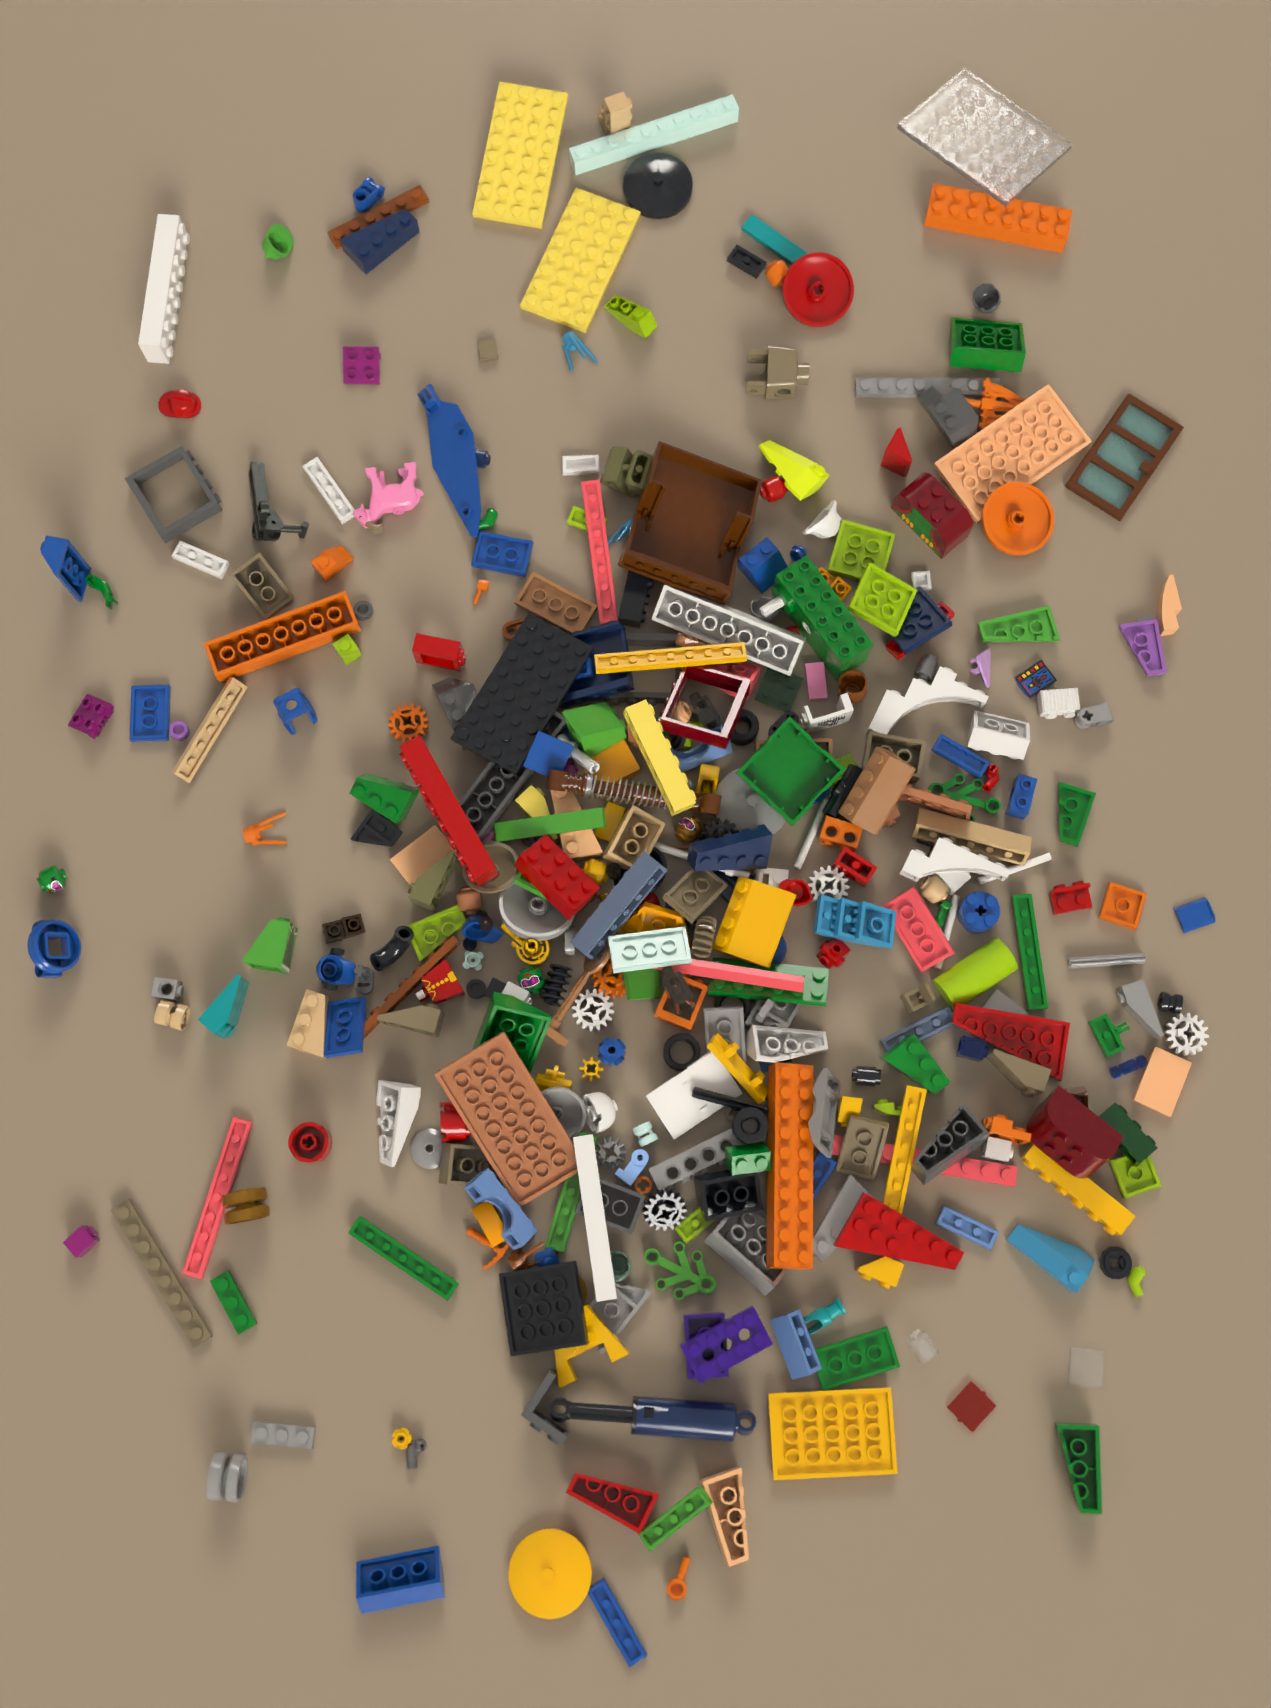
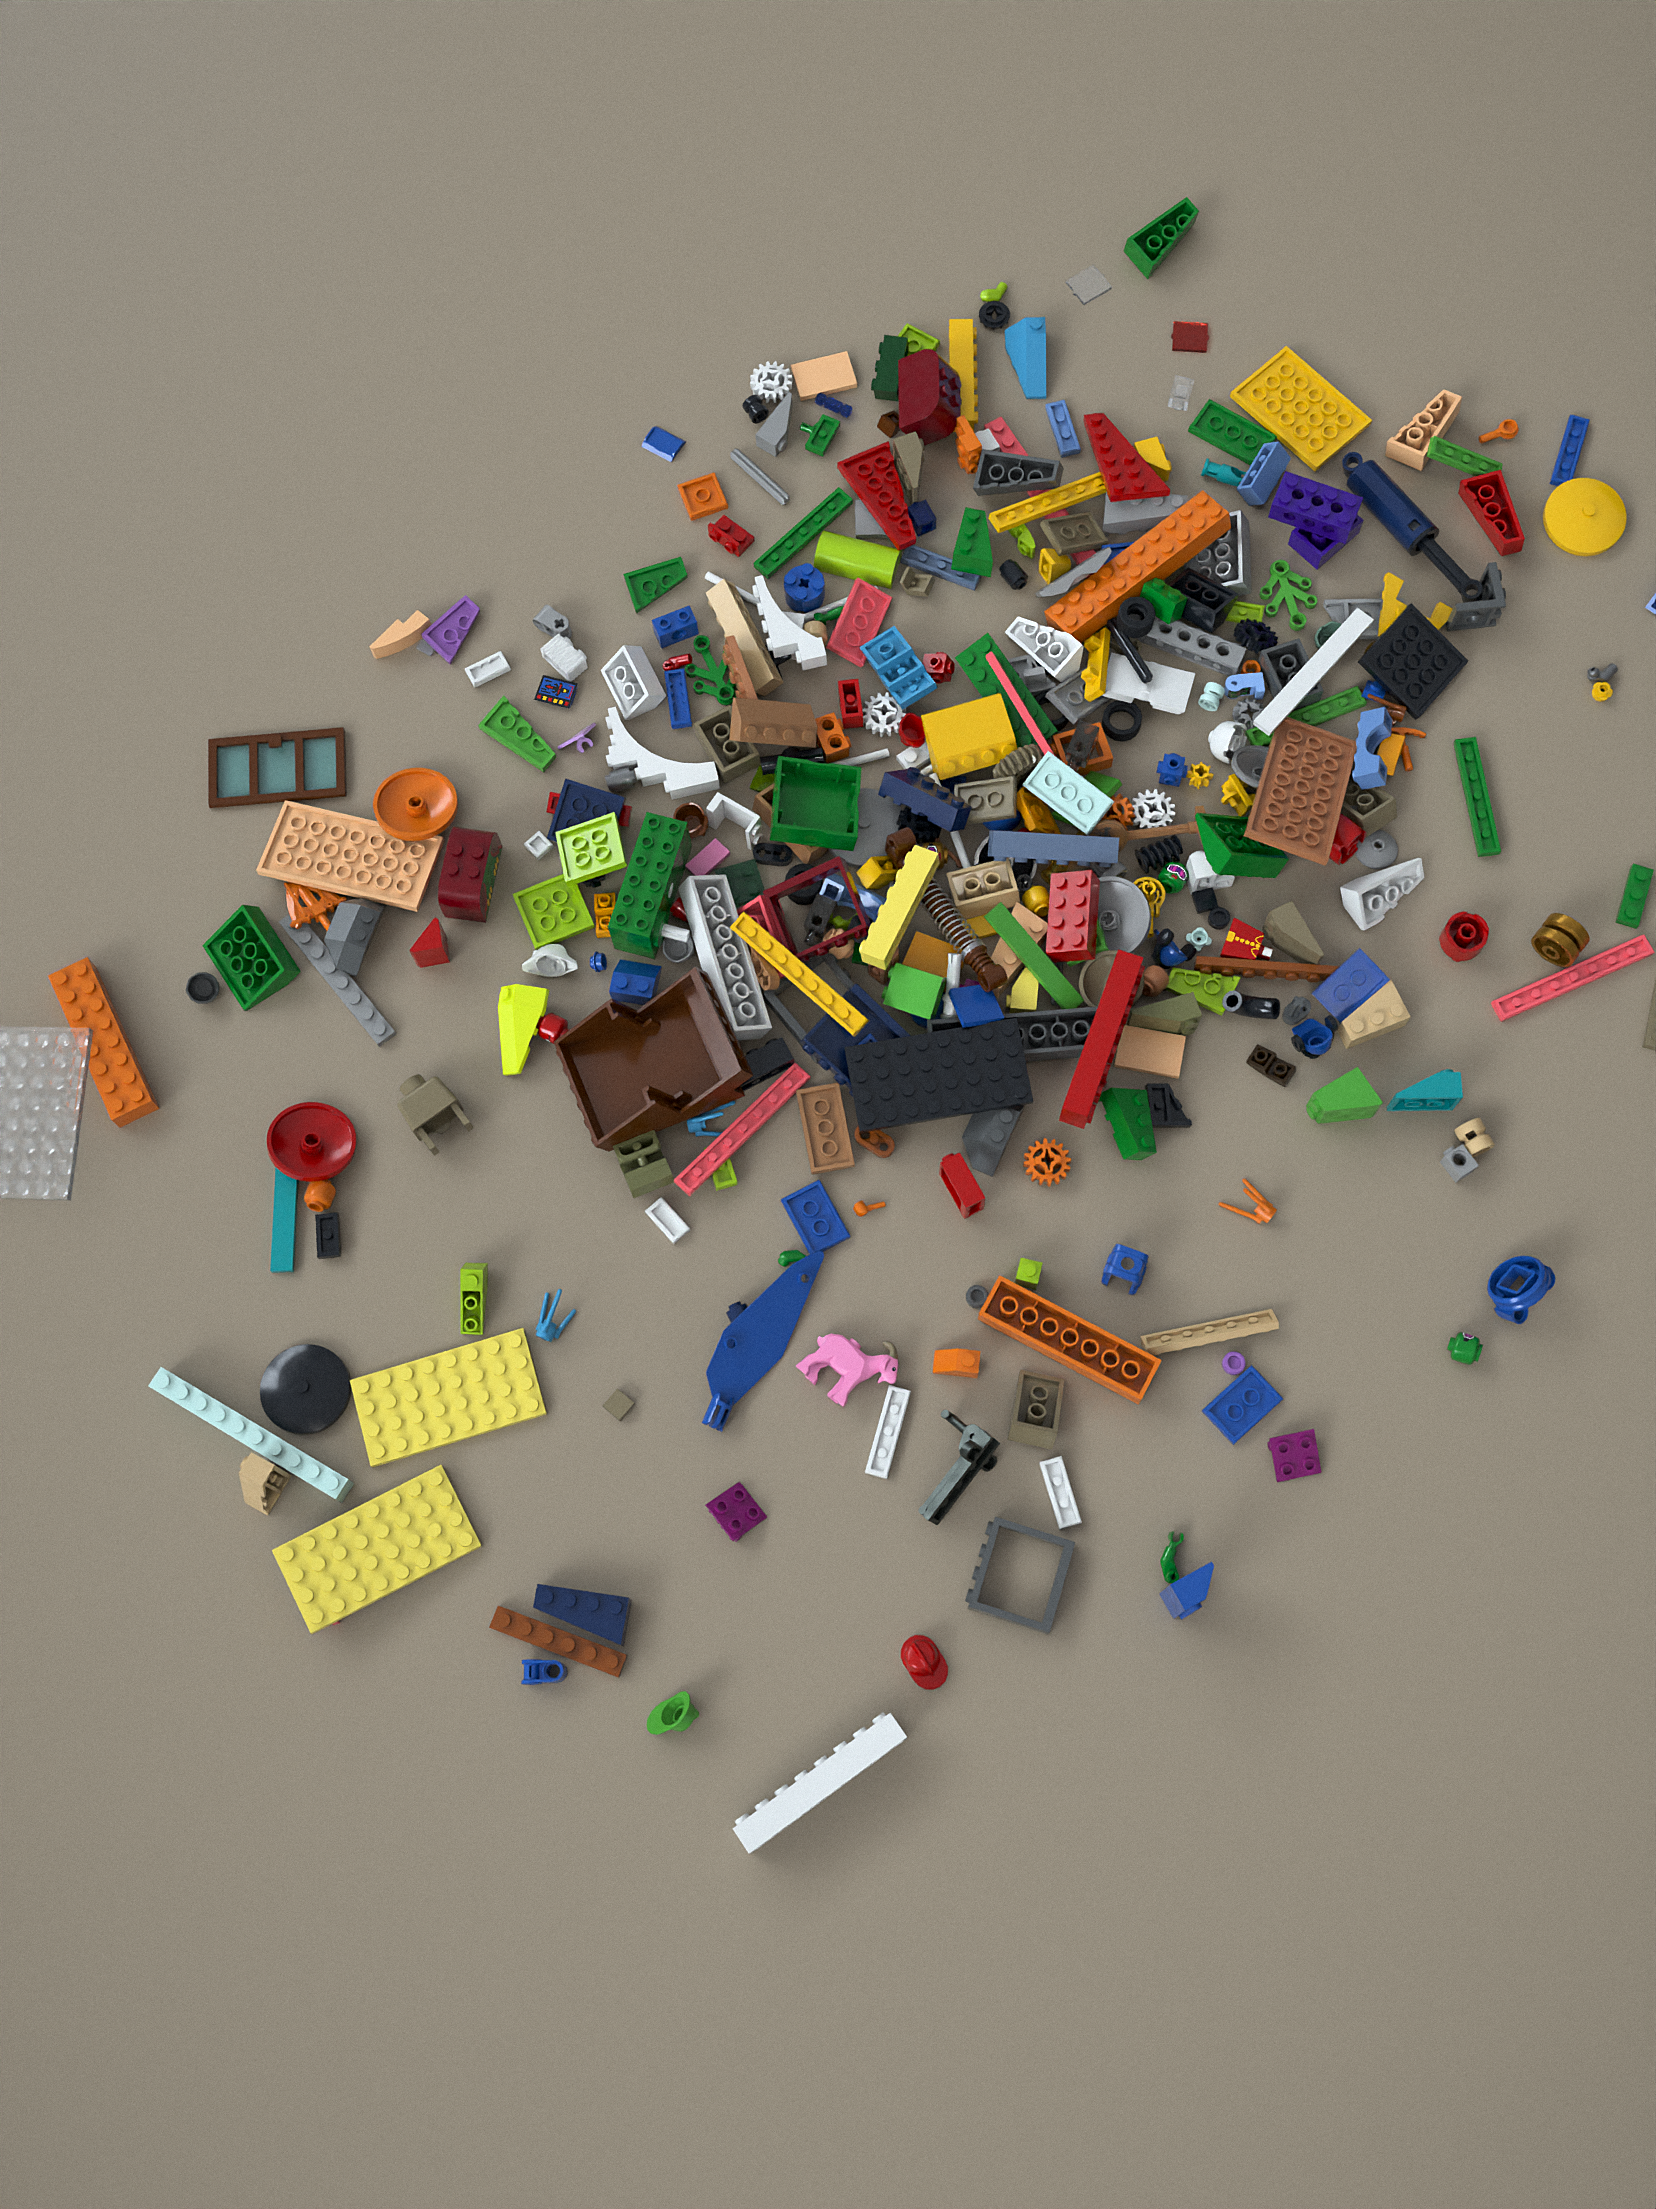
camera: 125 degrees left, 5 degrees down
(1092, 645) = (487, 669): none -> white plate

